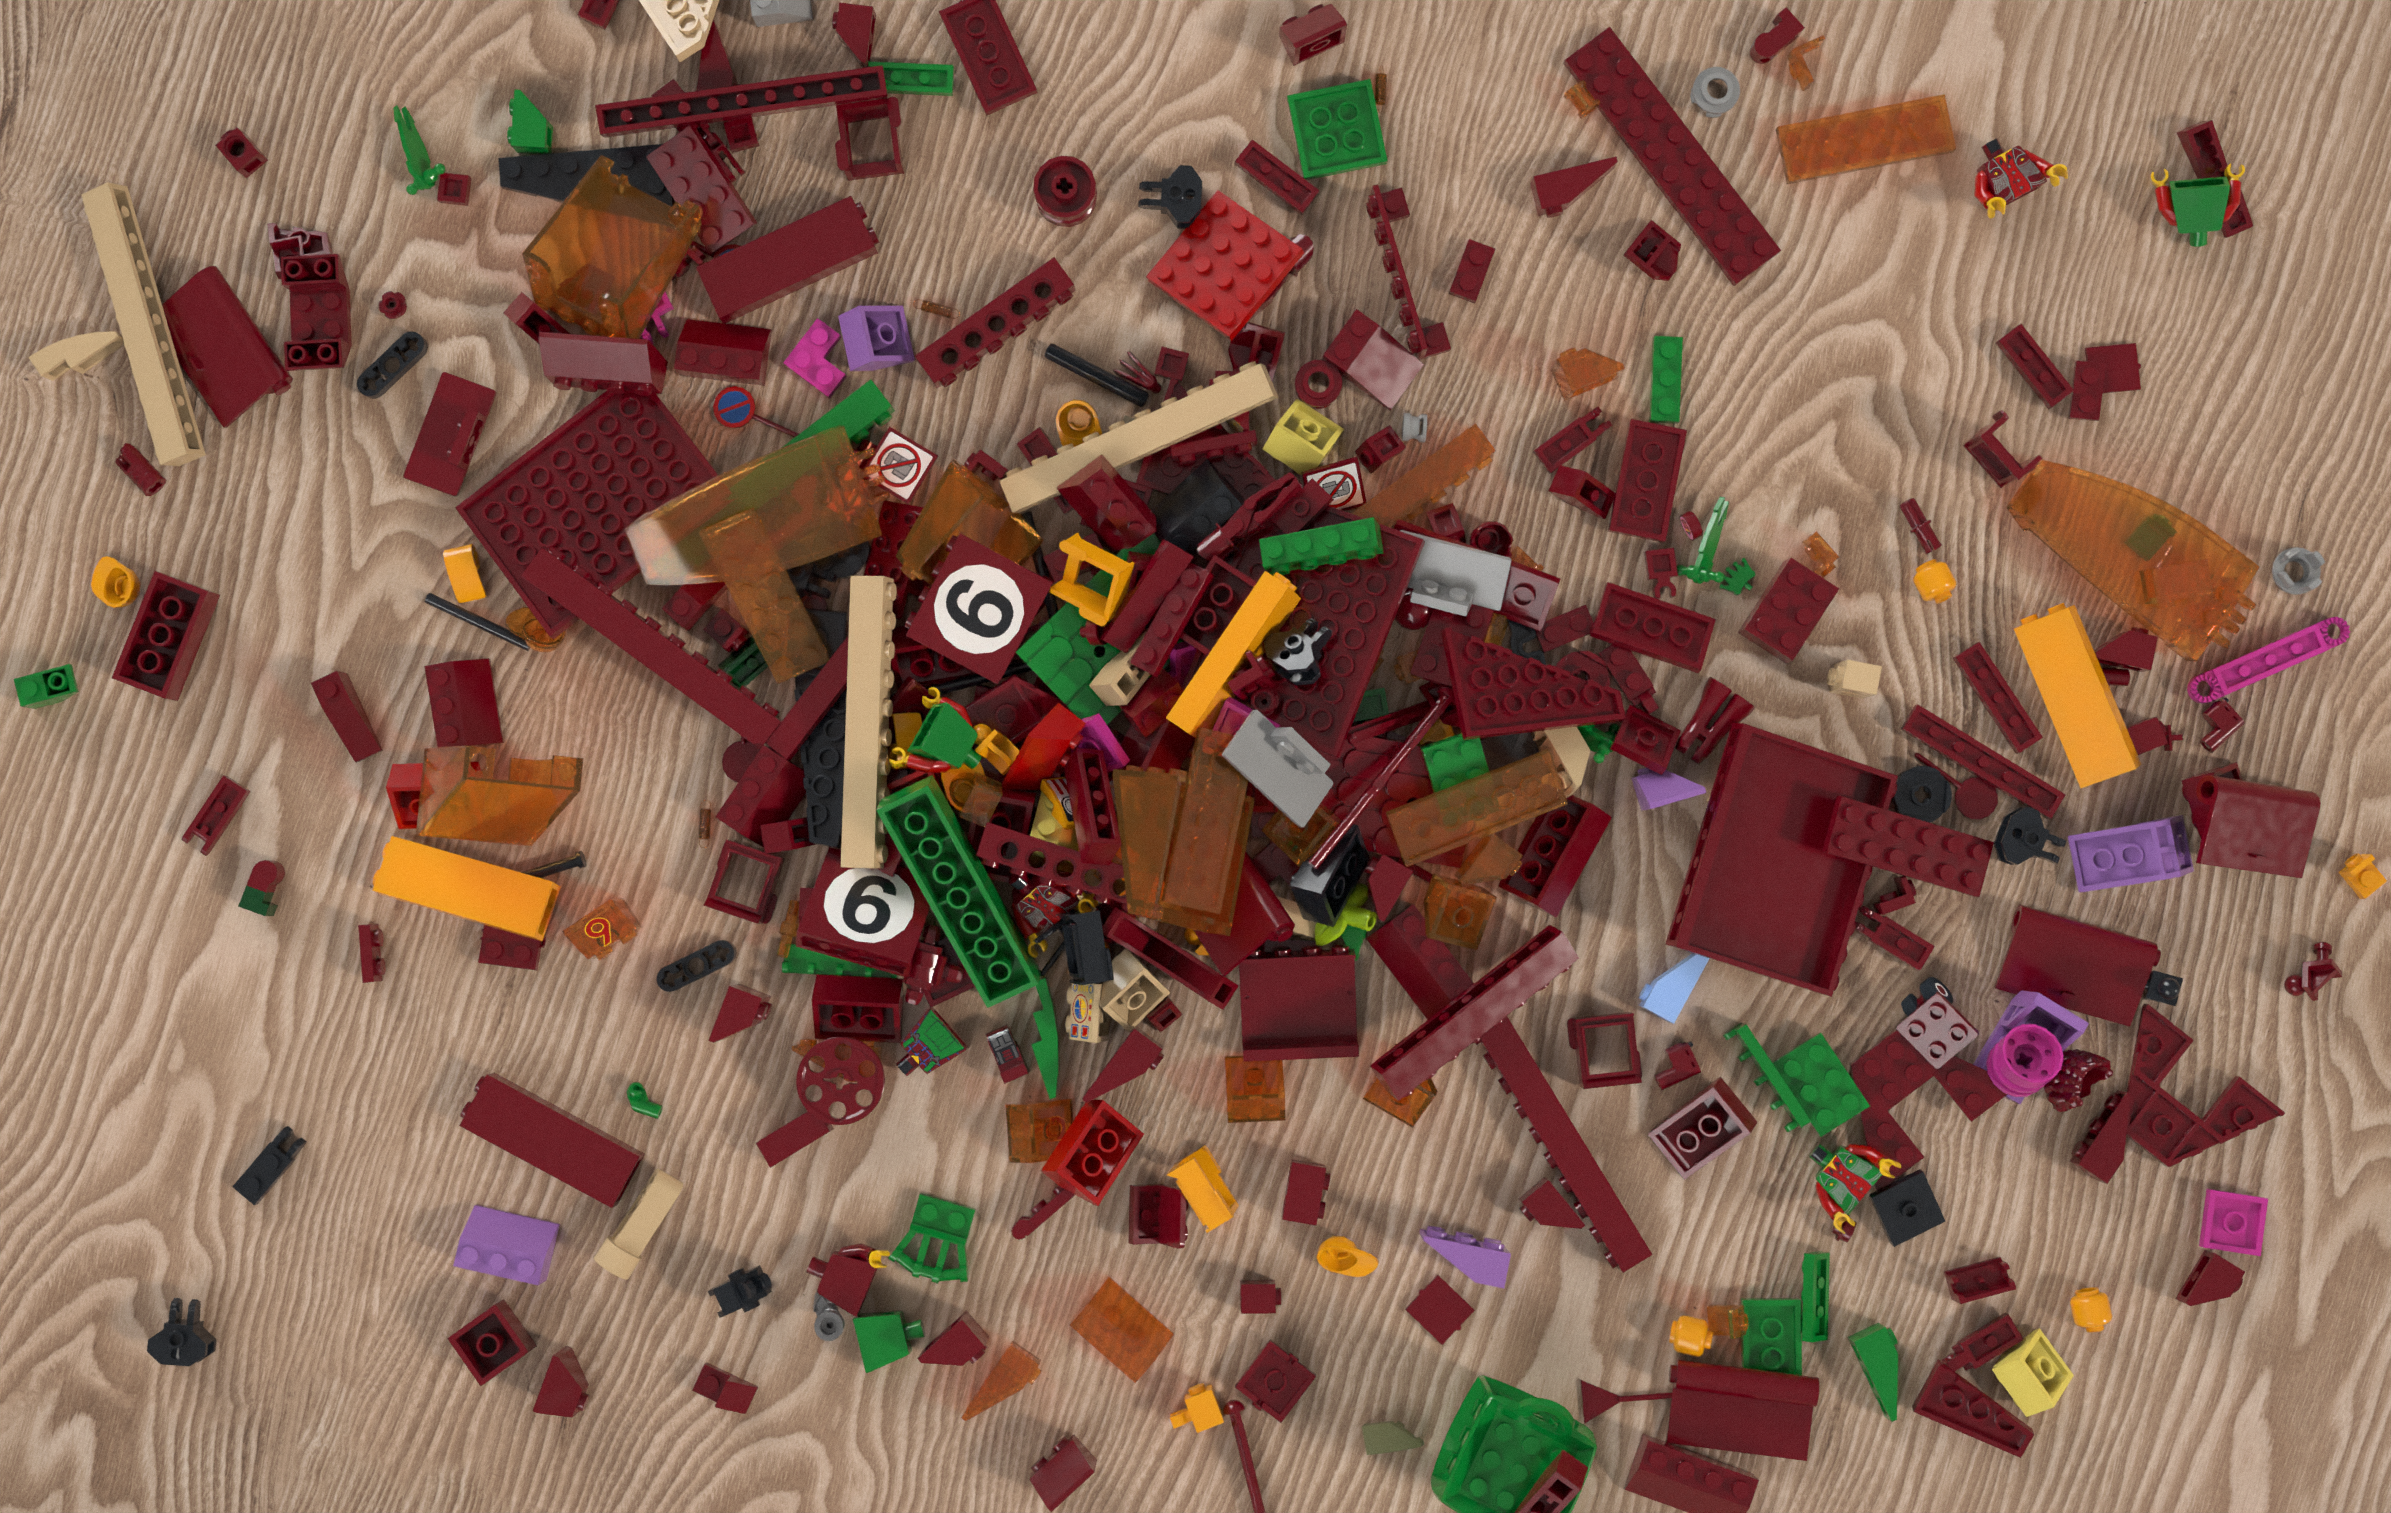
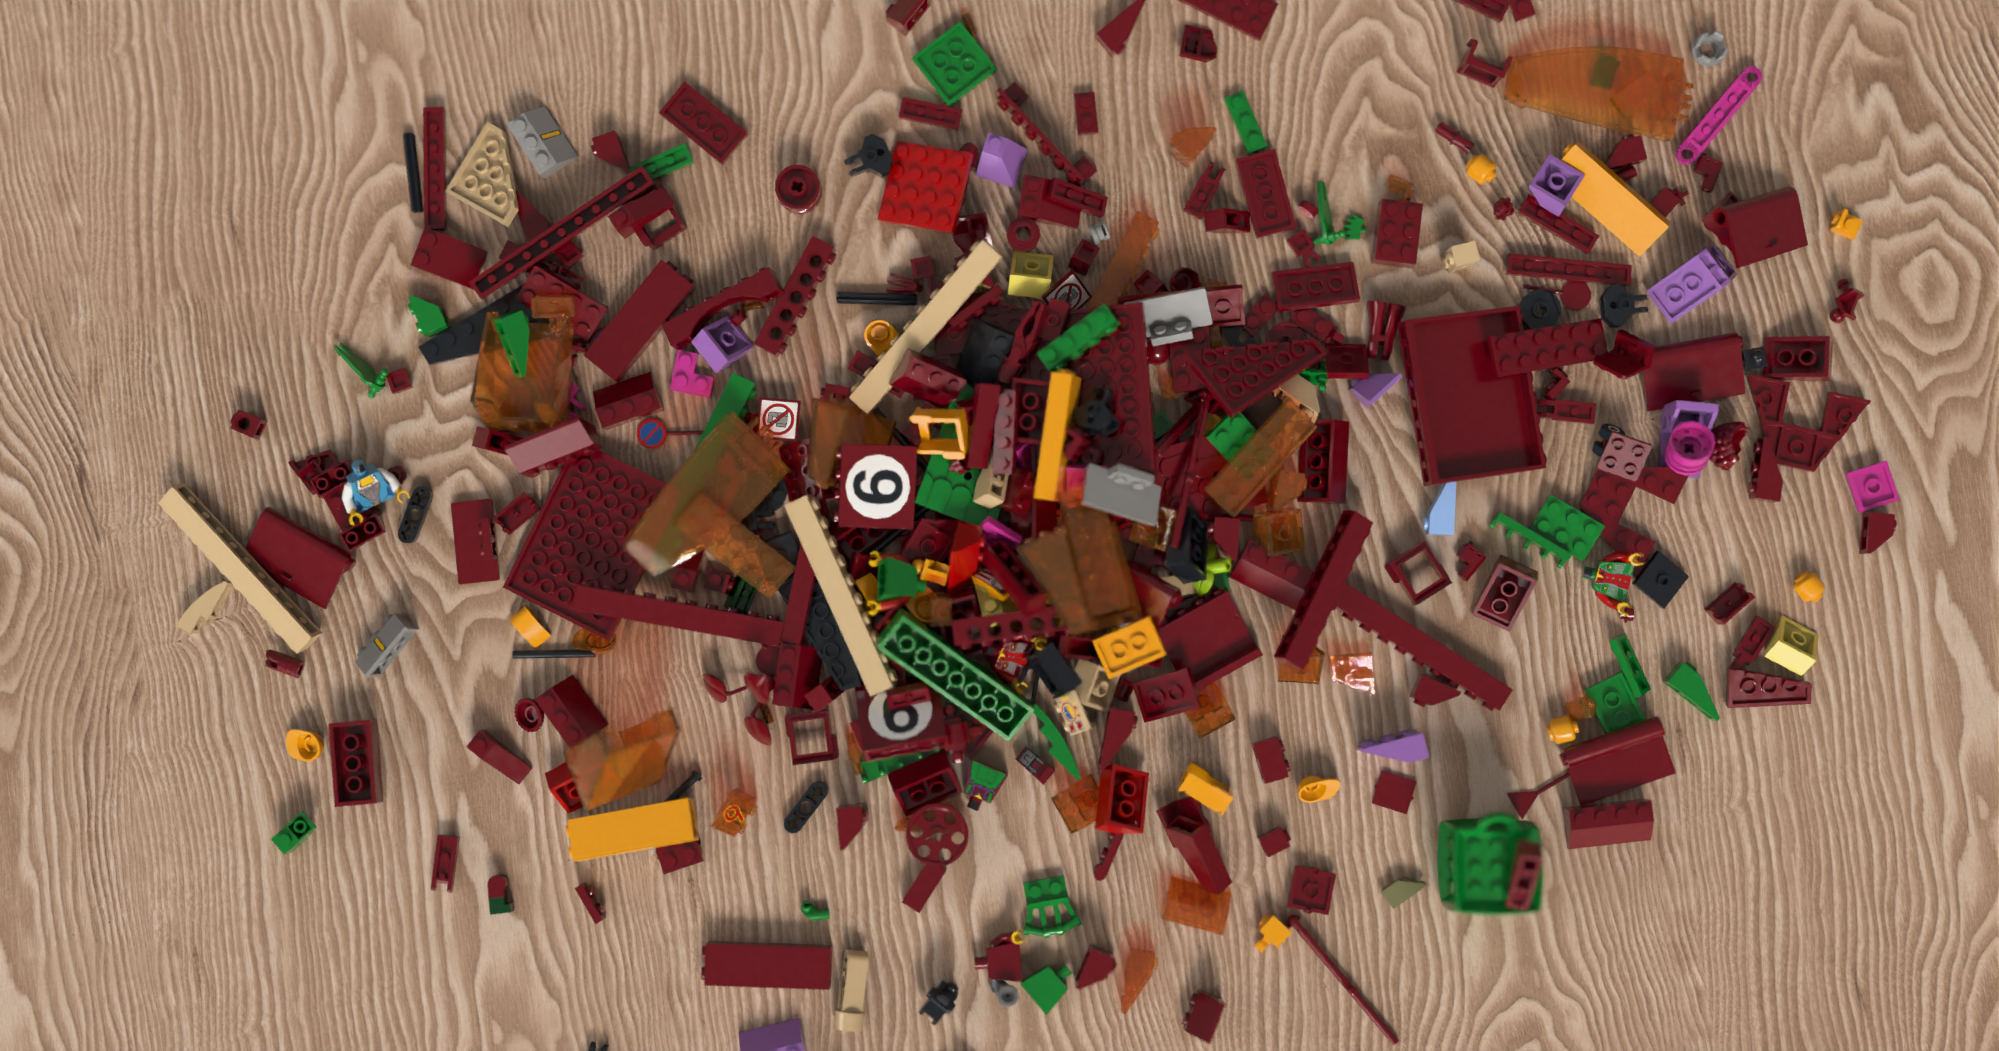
camera: 25 degrees left, 0 degrees up
(274, 509) = (385, 645): none -> light grey slope
(348, 302) = (368, 488): none -> torso
(409, 682) = (529, 715): none -> dark red hat
(518, 424) = (517, 513): none -> dark red hinge
(588, 64) = (448, 258): none -> dark red slope
(620, 201) = (514, 335): none -> green slope
(686, 186) = (552, 305): none -> clear orange plate
(709, 789) = (759, 686): none -> dark red plant
(853, 123) = (640, 212): none -> dark red slope
(888, 888) = (908, 695): none -> dark red plate
(911, 314) = (737, 317): none -> dark red plate
(958, 289) = (760, 287): none -> dark red arch
(1157, 1266) = (1199, 852): none -> dark red slope
(1194, 964) = (1129, 647): none -> light orange tile
(1214, 1047) = (1167, 695): none -> dark red plate
(1336, 278) = (1001, 160): none -> medium lavender slope
(1408, 370) = (1077, 197): none -> dark red plate
(1464, 1132) = (1353, 670): none -> clear orange slope
(1937, 644) = (1503, 208): none -> dark red plant
(2004, 908) = (1628, 357): none -> dark red bracket
(2018, 645) = (1555, 184): none -> medium lavender slope
(2220, 1015) = (1799, 358): none -> dark red slope

